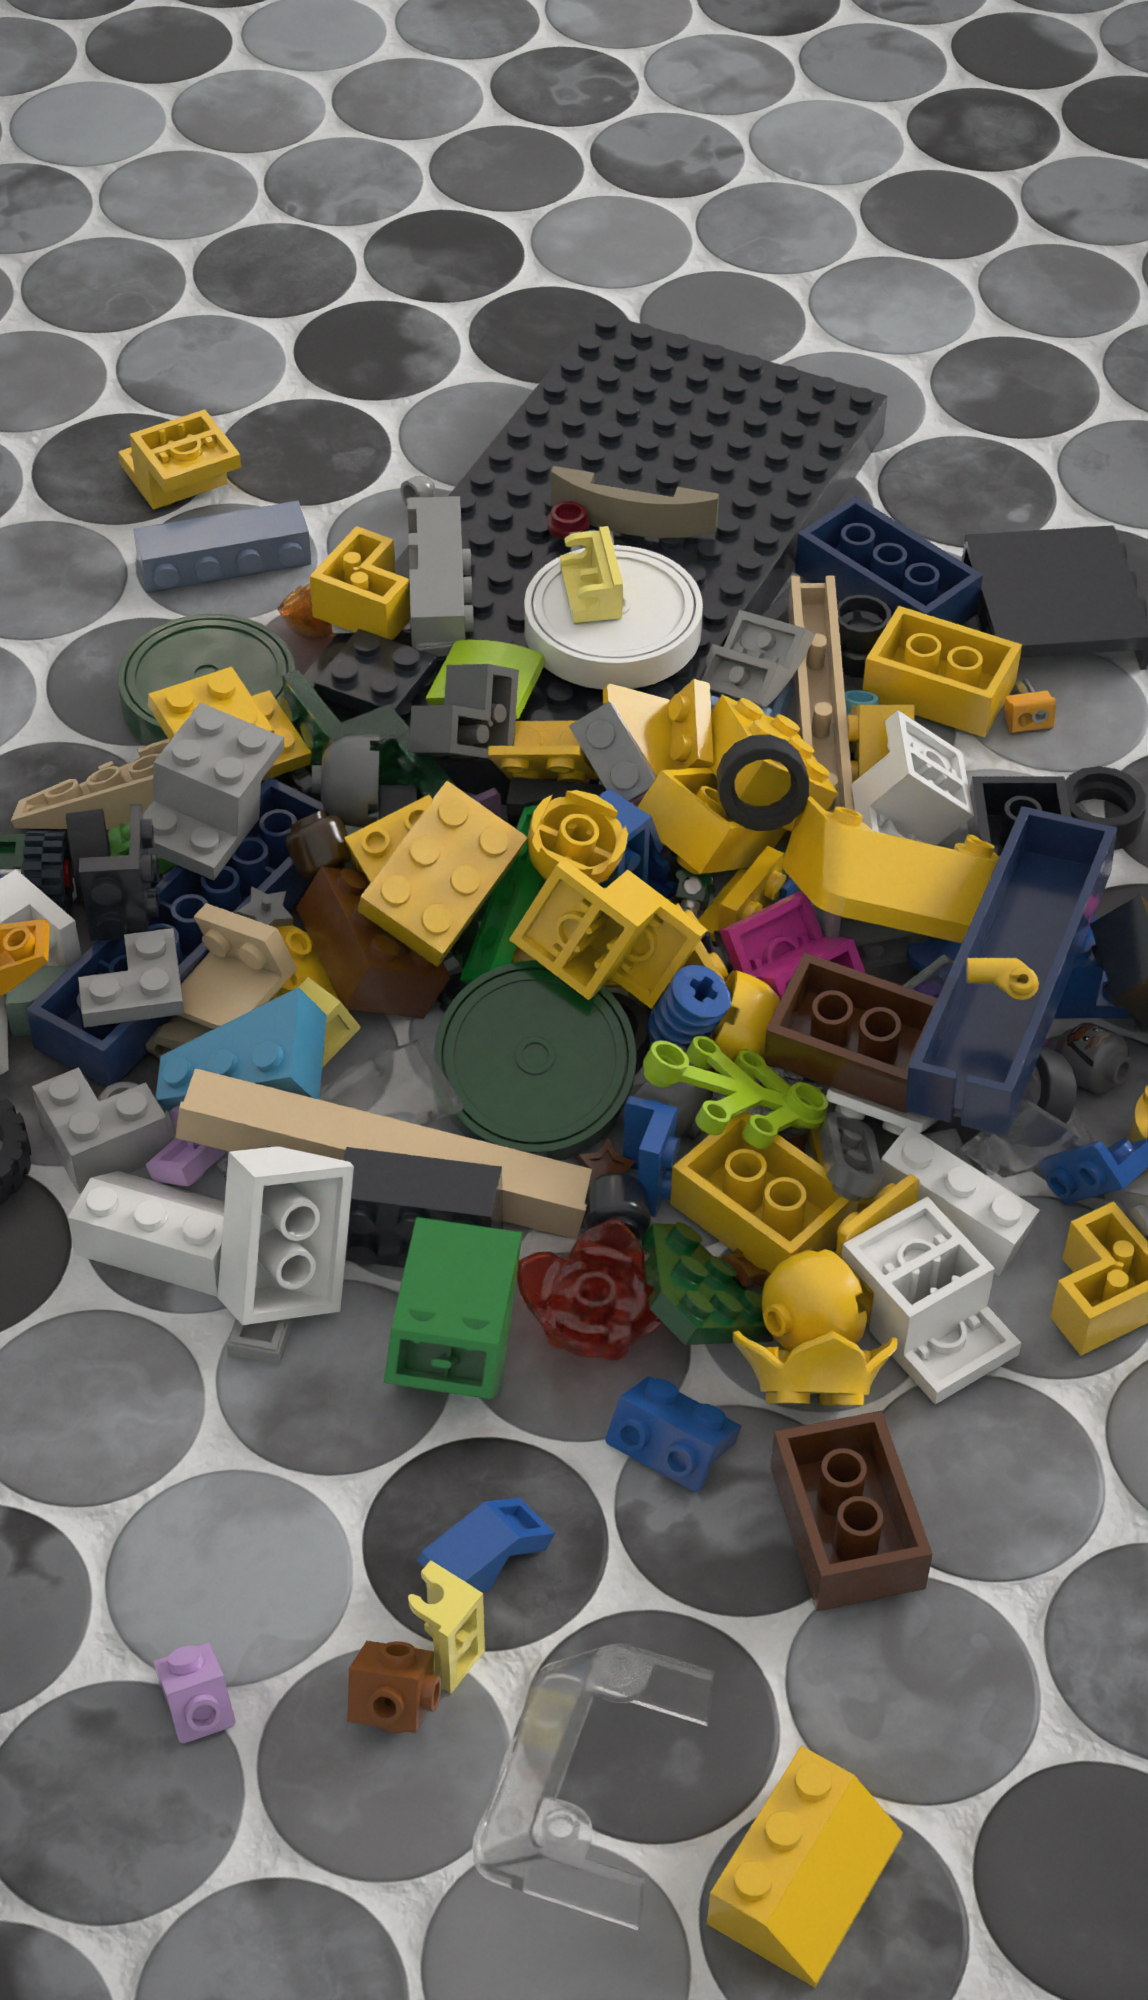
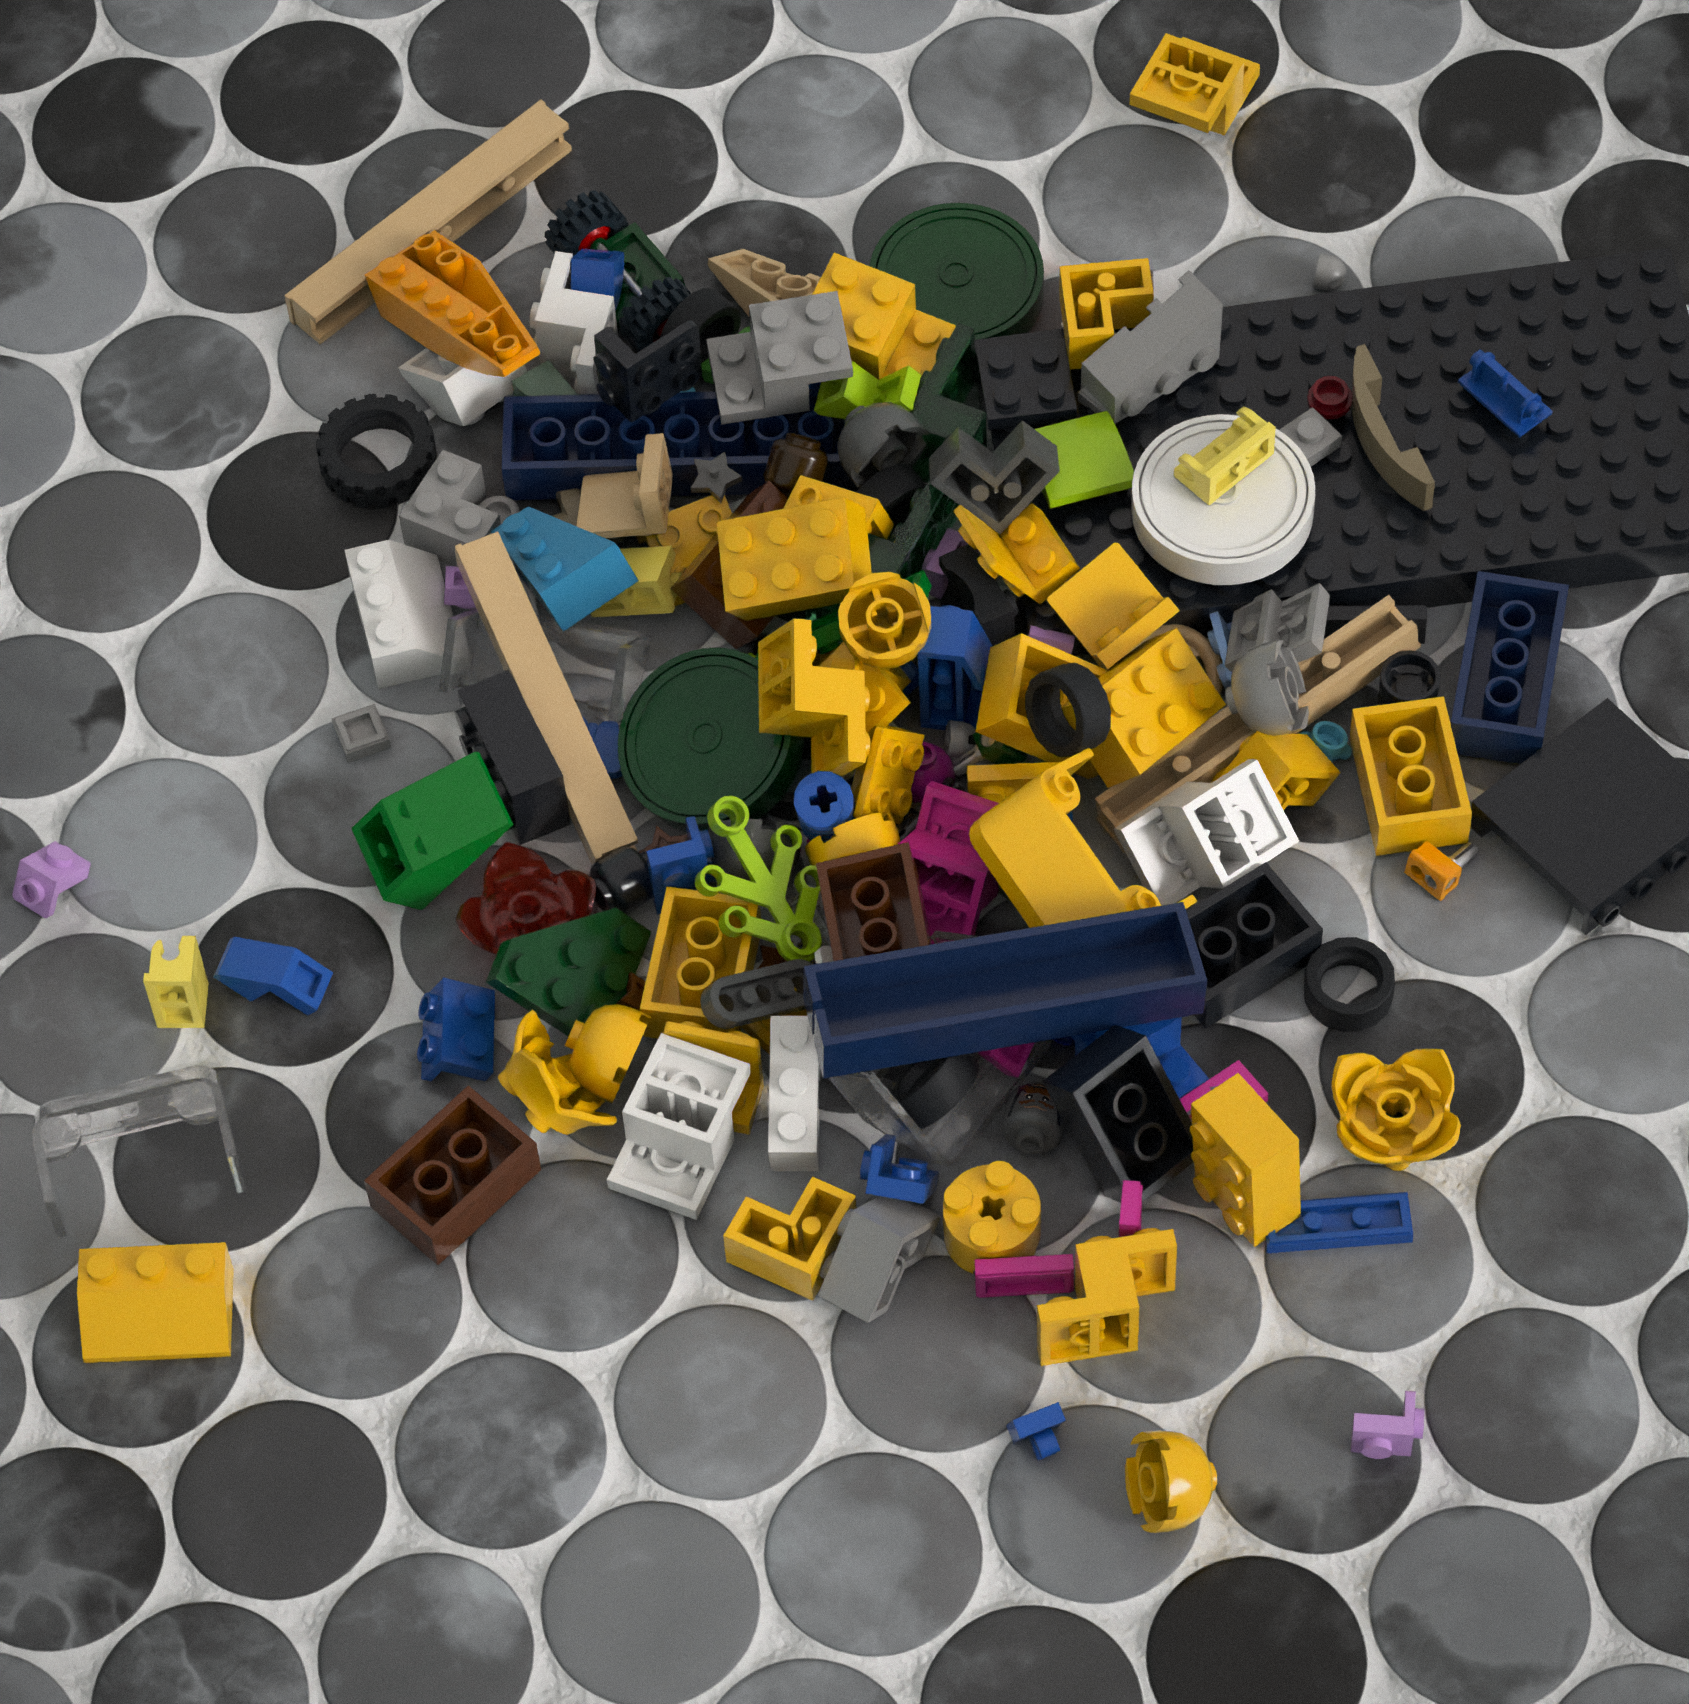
camera: 60 degrees right, 10 degrees up
(144, 991) = (580, 454): light grey plate -> none
(222, 546) = (1132, 184): sand blue brick -> none
(284, 1234) = (409, 683): white slope -> none
(292, 770) = (842, 396): none -> lime slope
(392, 1686) = (116, 983): dark orange brick -> none
(614, 752) = (1034, 593): flat silver brick -> none
(640, 435) = (1503, 394): none -> blue hinge
(830, 676) = (1268, 689): none -> light grey cylinder
(1006, 973) = (948, 980): yellow arm -> none

